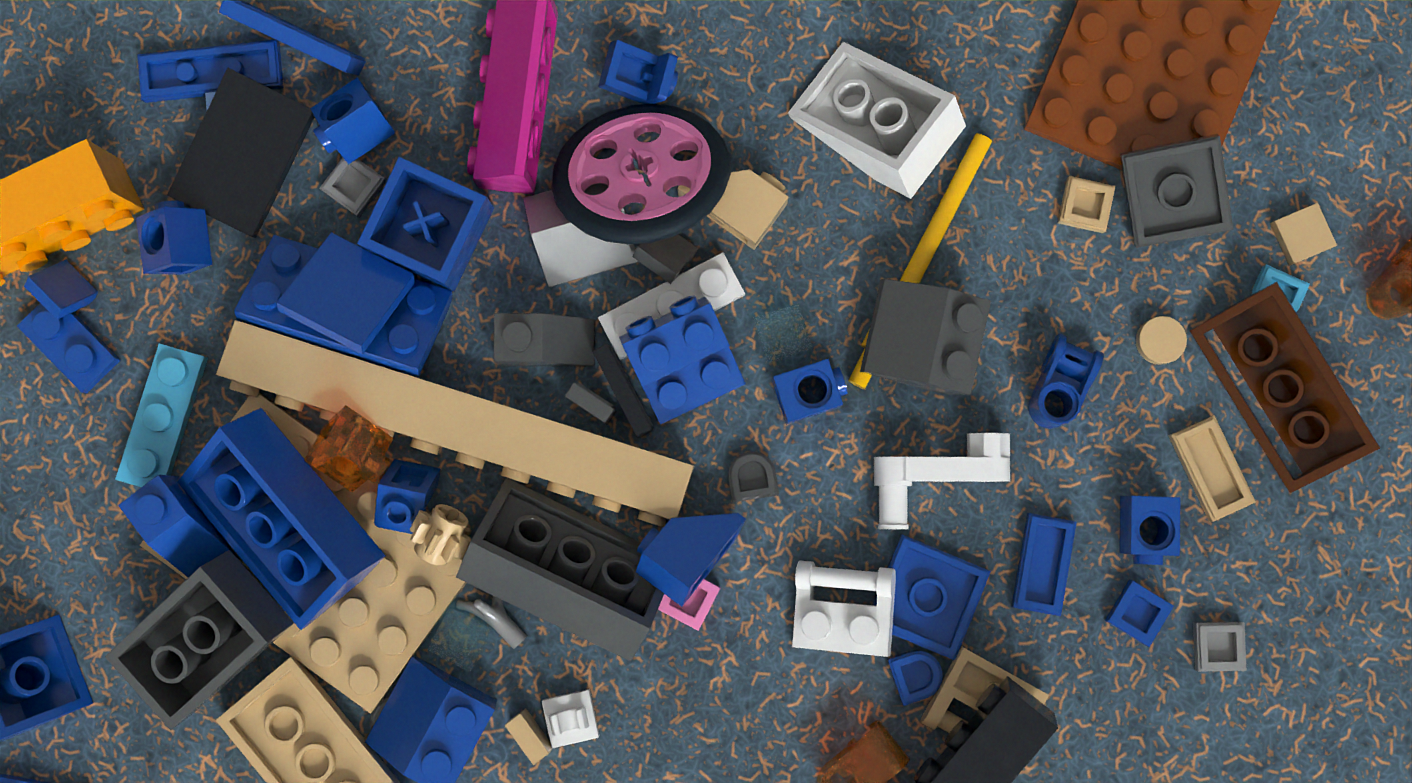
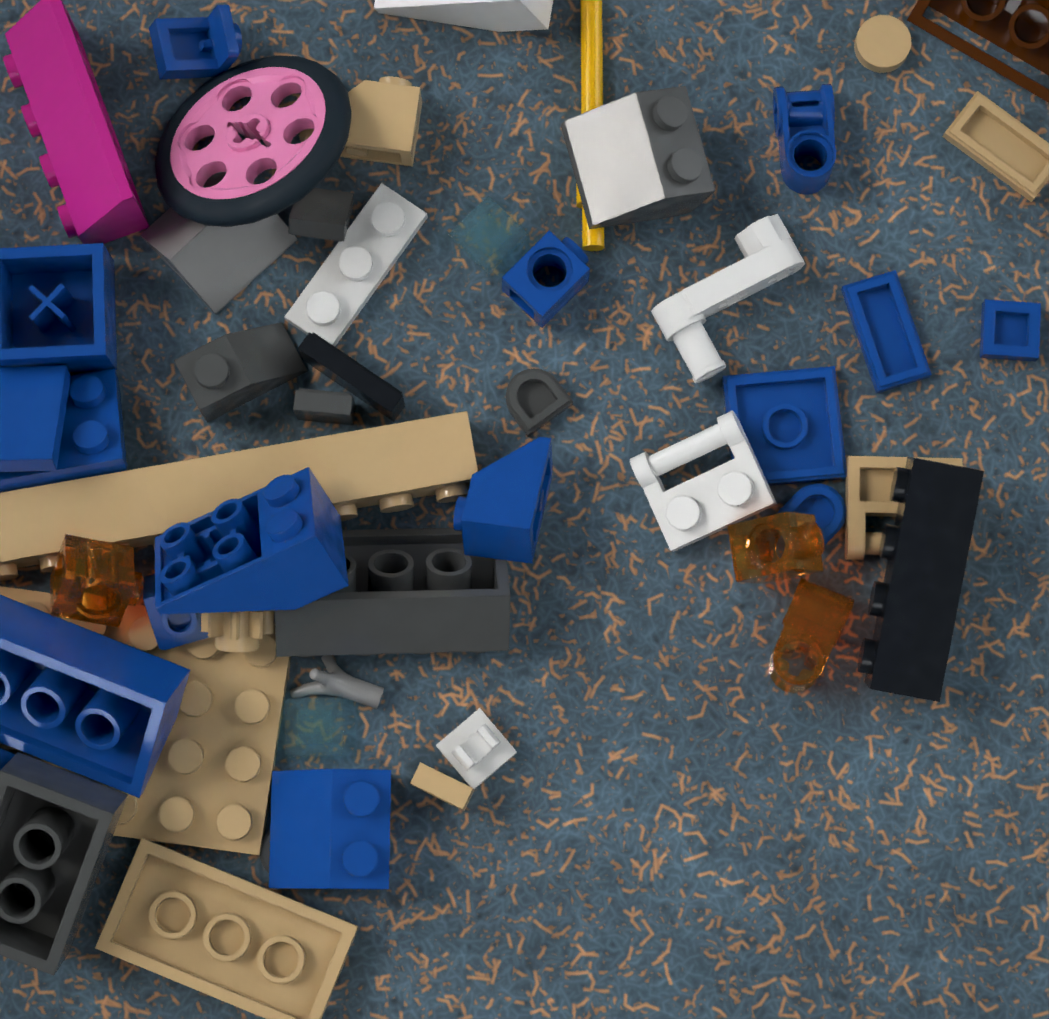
camera: 30 degrees left, 5 degrees down
(474, 496) = (254, 552): none -> blue slope
(681, 358) = (395, 311): blue plate -> none
(695, 608) = (547, 563): bright pink tile -> none
(854, 686) = (755, 544): none -> clear orange brick
(1165, 513) = (980, 214): blue brick -> none

